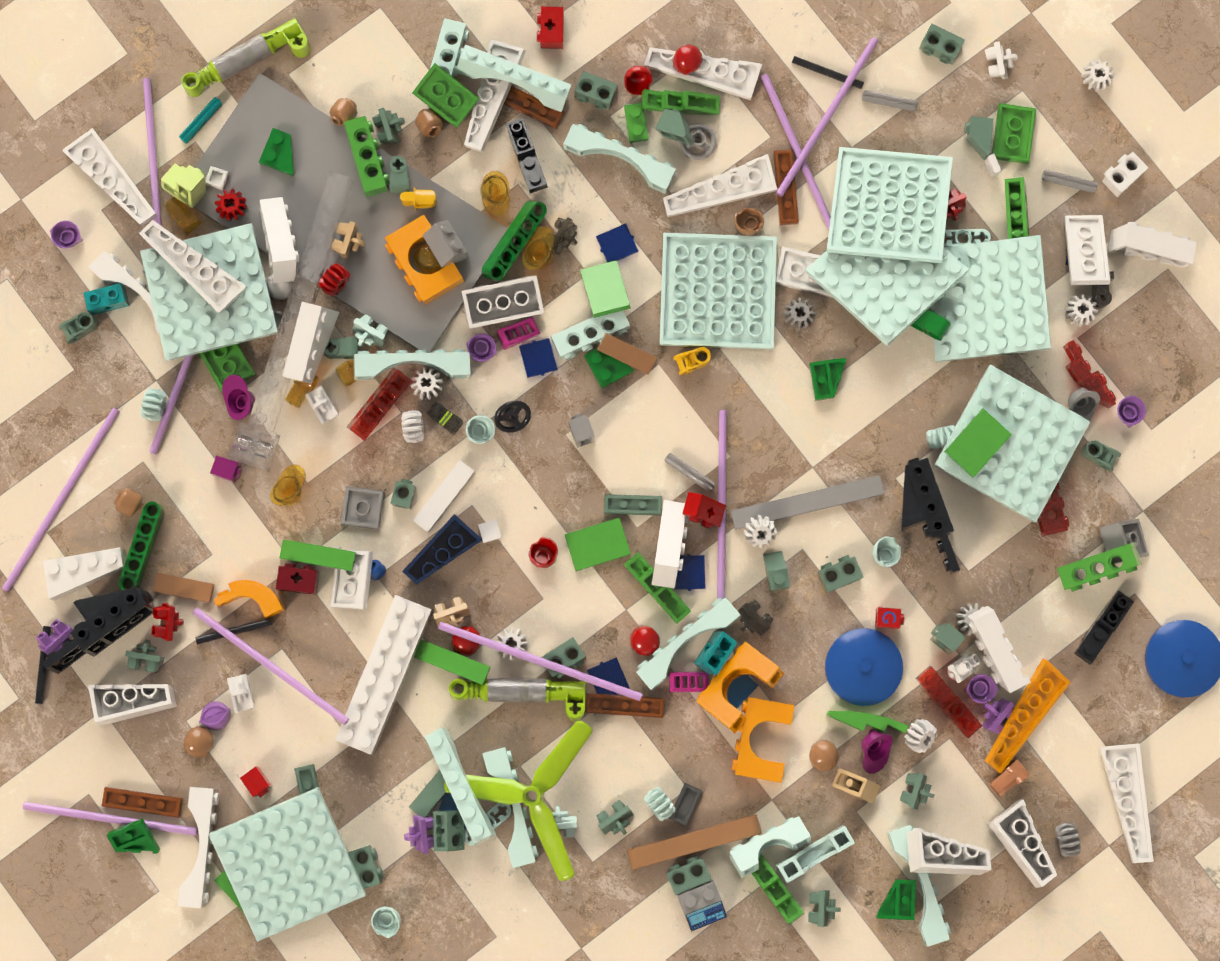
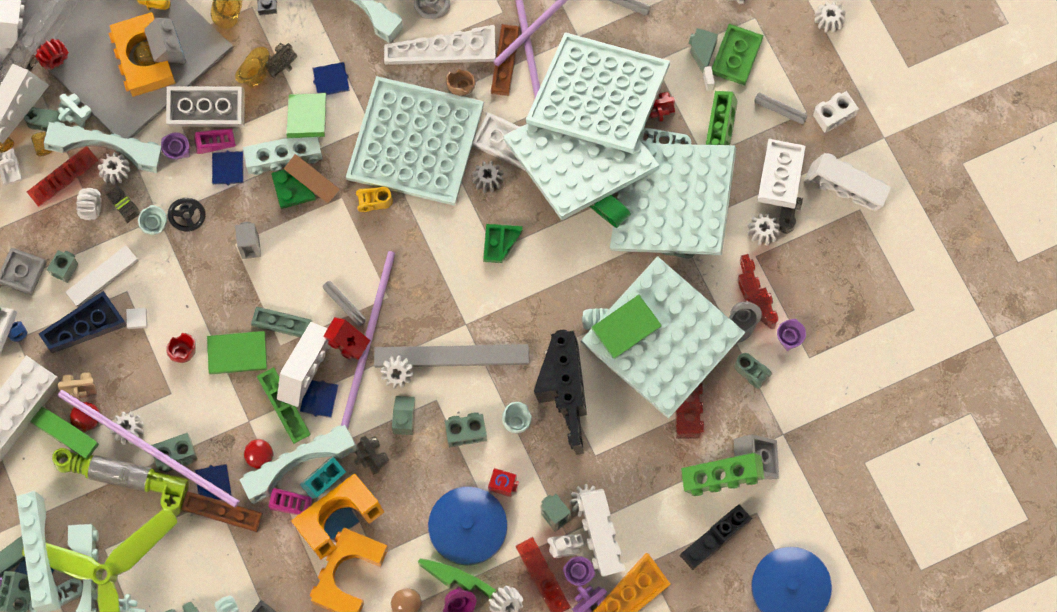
camera: 15 degrees right, 10 degrees down
(349, 231) = (78, 22): tan hips -> none
(506, 242) = (241, 52): green beam -> none

